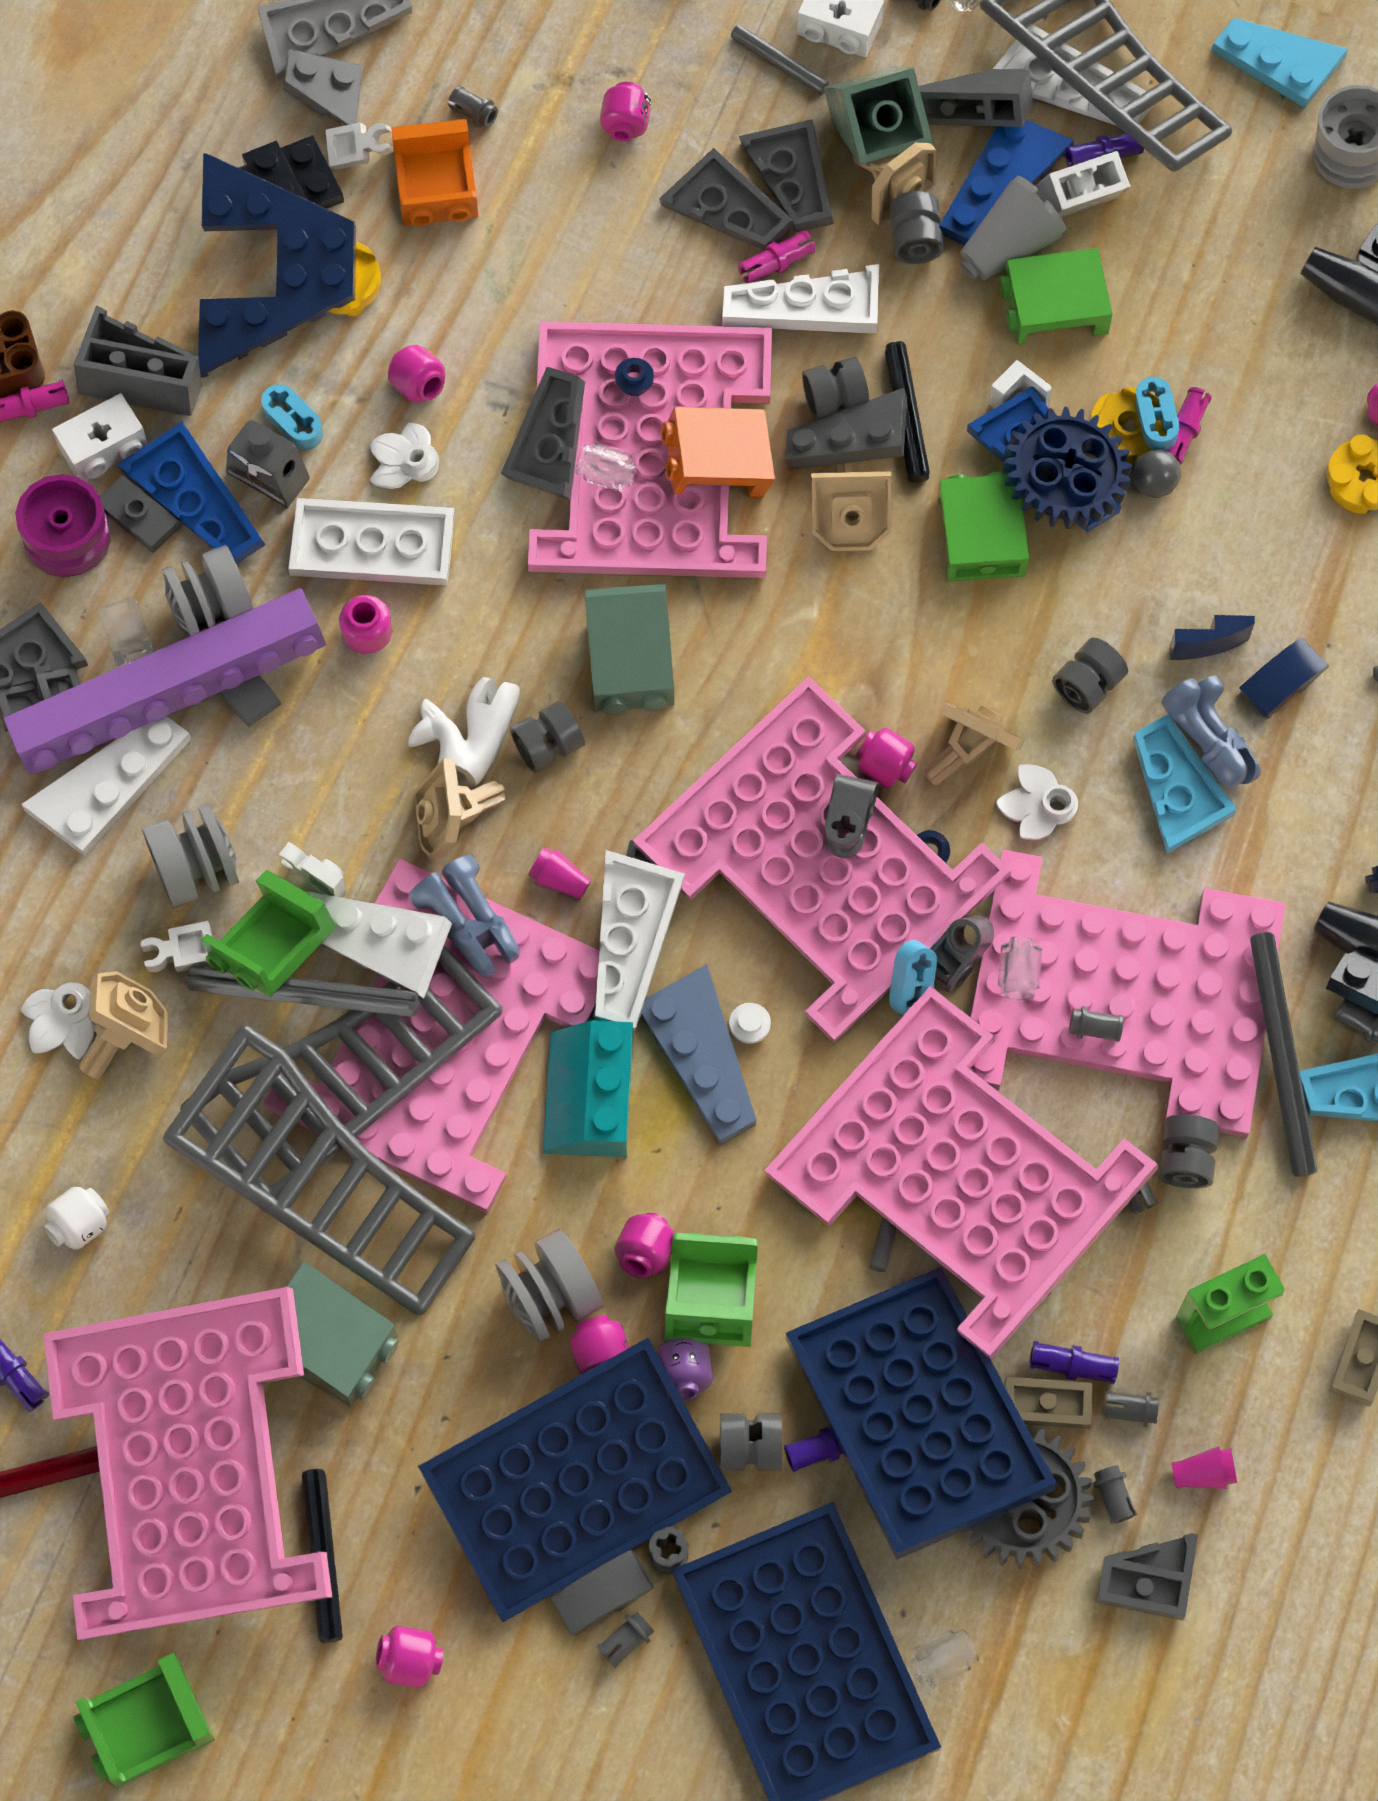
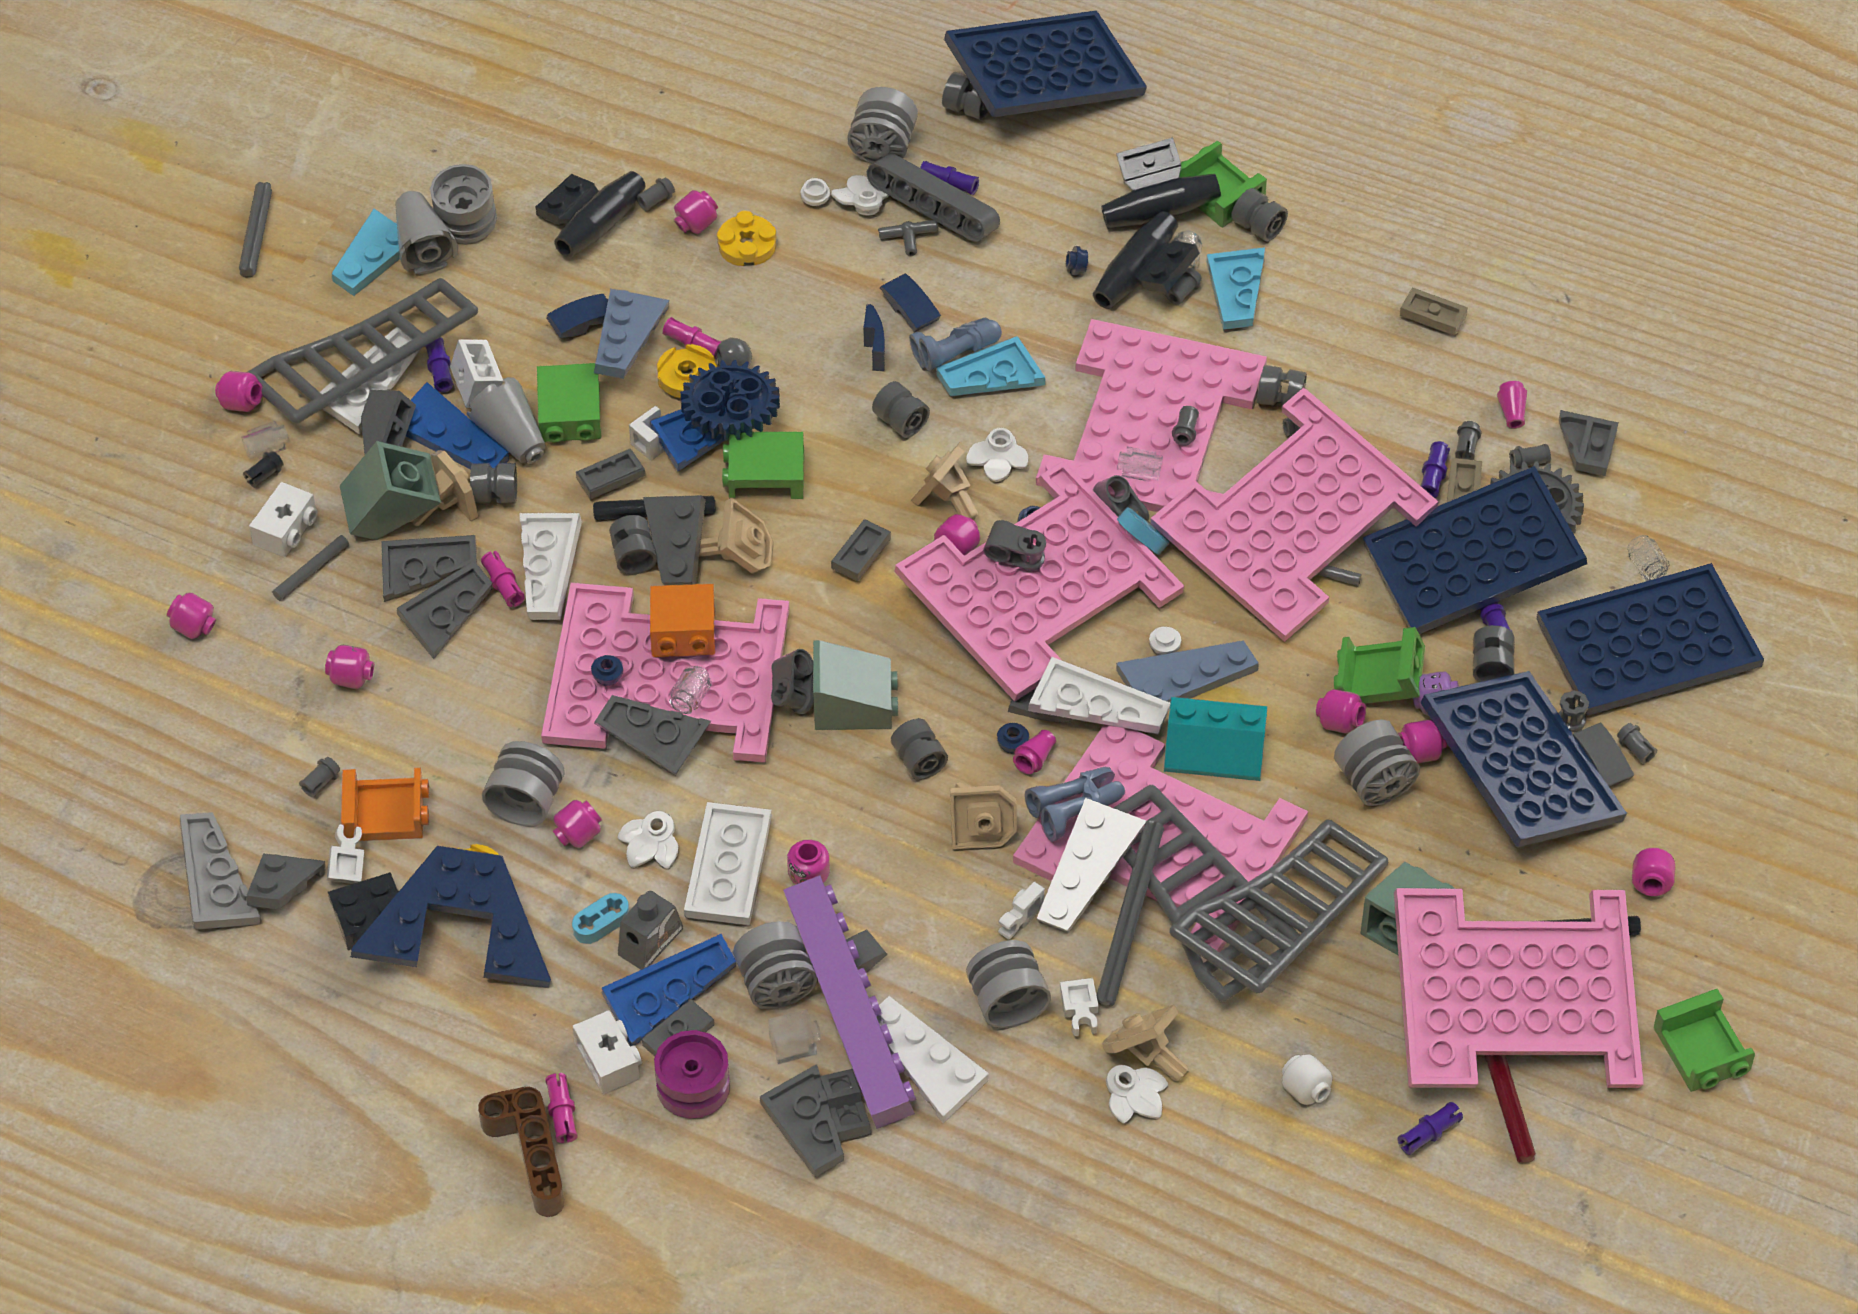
camera: 85 degrees left, 15 degrees down
(143, 369) = (544, 1021): dark grey wedge -> none
(271, 936) = (1083, 928): bright green panel -> none
(449, 303) = (523, 783): none -> light grey wheel
(487, 724) = (924, 802): white piece -> none
(582, 859) = (1009, 743): none -> dark blue plate
(635, 573) = (791, 678): none -> dark grey piece
(860, 649) = (861, 550): none -> dark grey plate
(952, 356) = (610, 473): none -> dark grey plate
(1148, 415) = (687, 346): medium azure beam -> none
(1181, 343) = (626, 329): none -> sand blue wing
(1206, 296) = (577, 315): none -> dark blue slope
(1229, 1304) = (1396, 360): bright green panel -> none
(1283, 1054) = (1209, 328): dark grey axle -> none
(1294, 94) = (422, 235): none -> light grey cone

